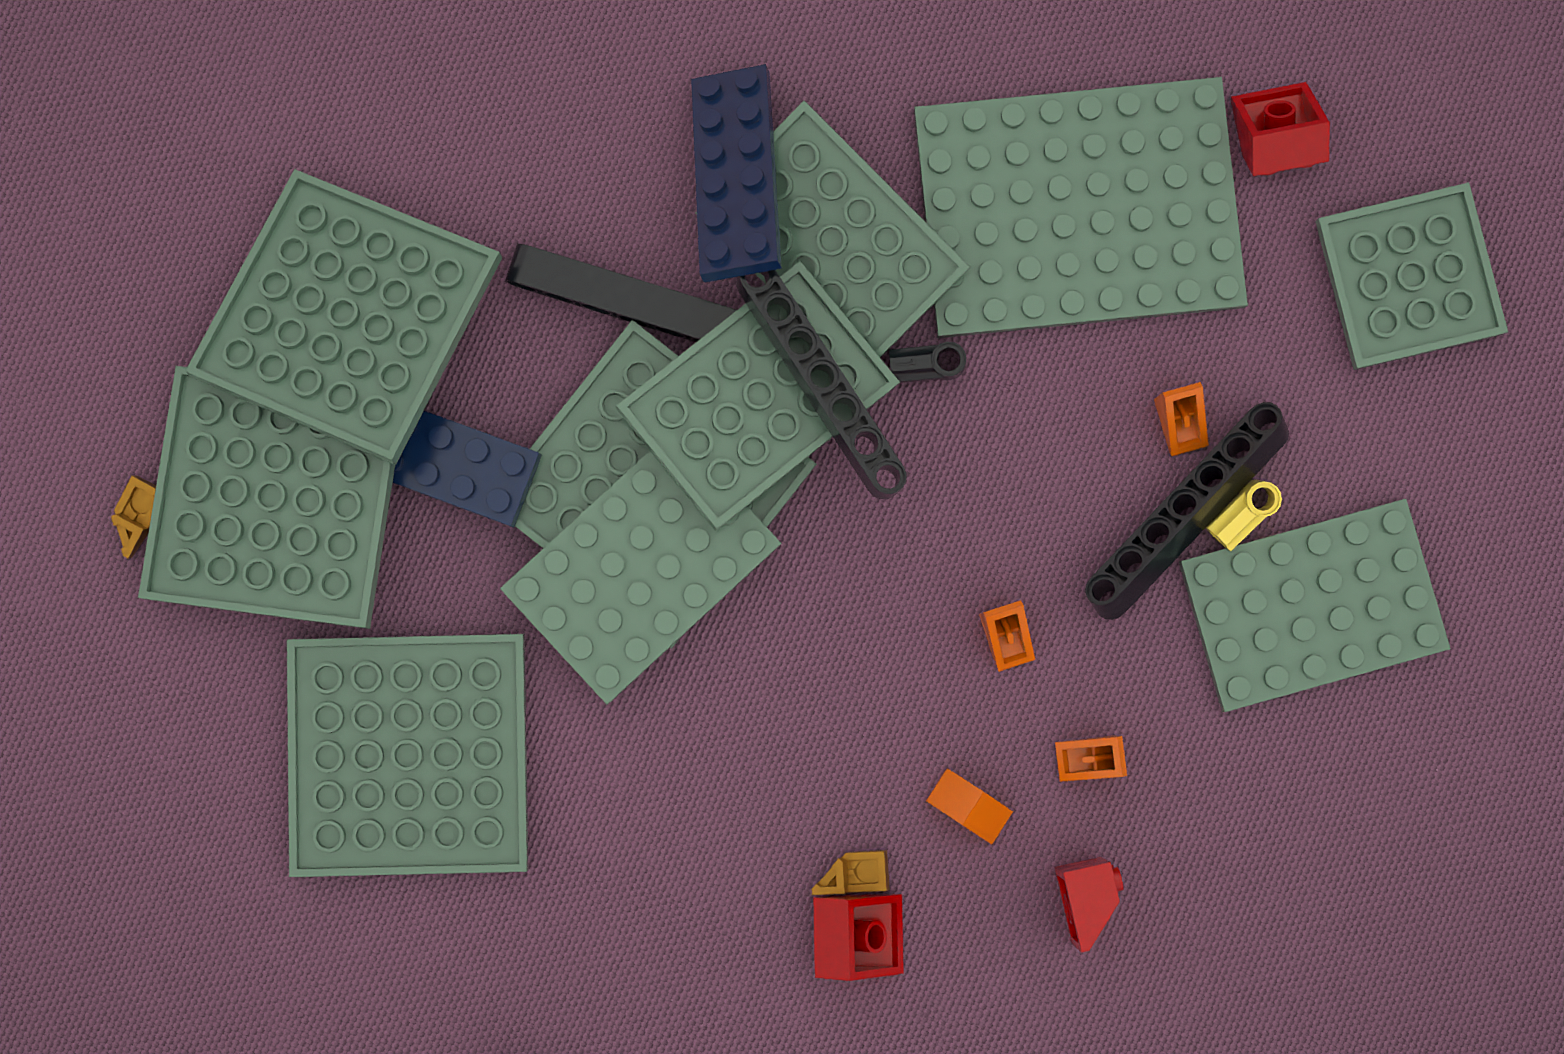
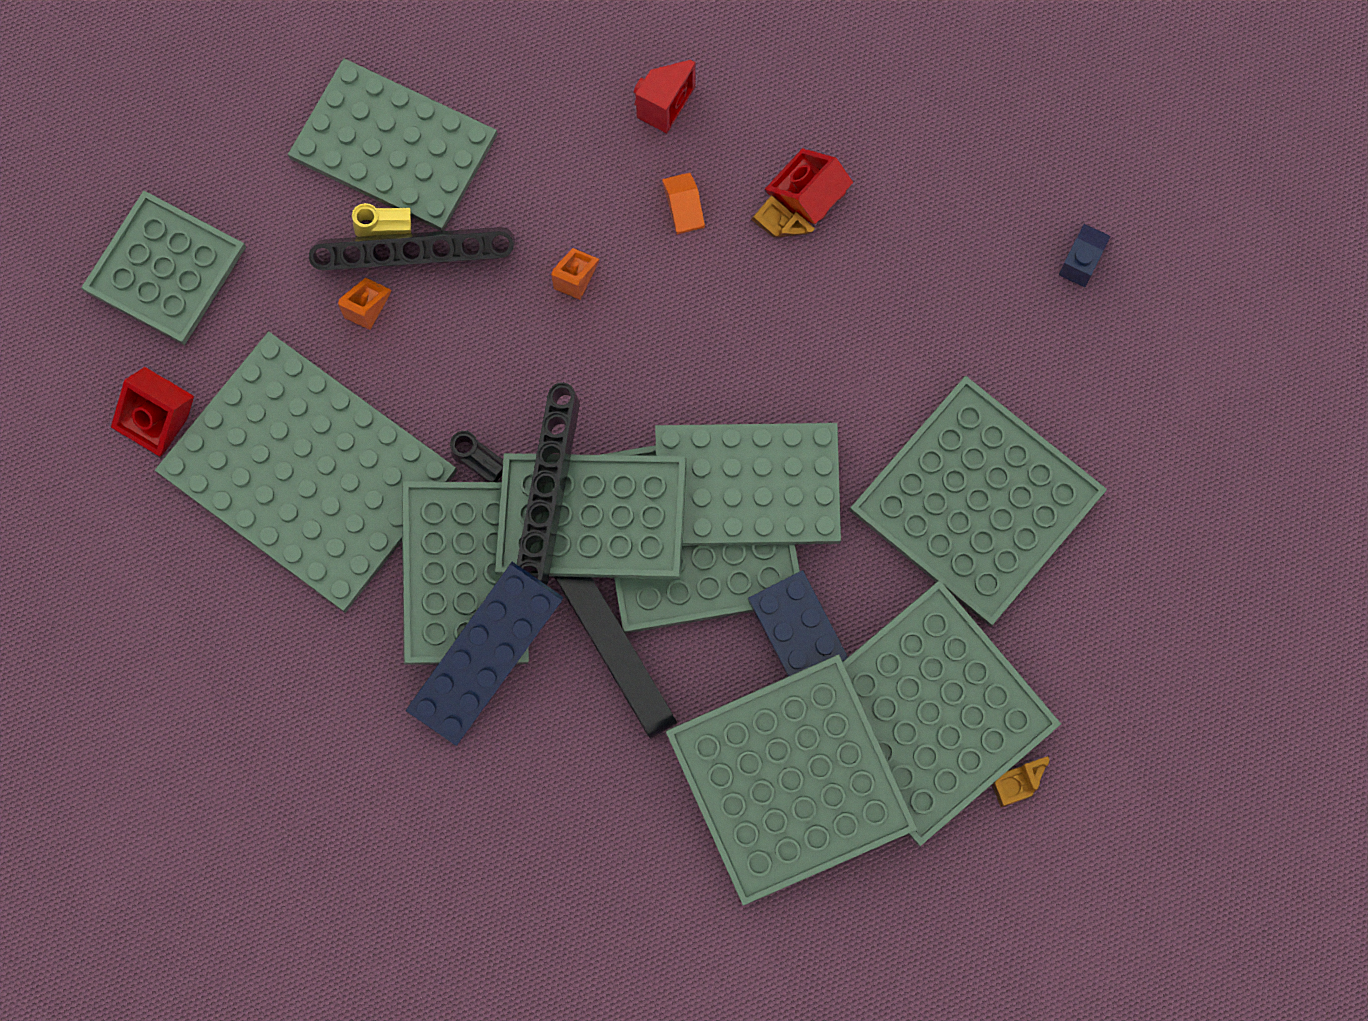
camera: 135 degrees left, 10 degrees down
(1091, 758) = (591, 166): orange slope -> none

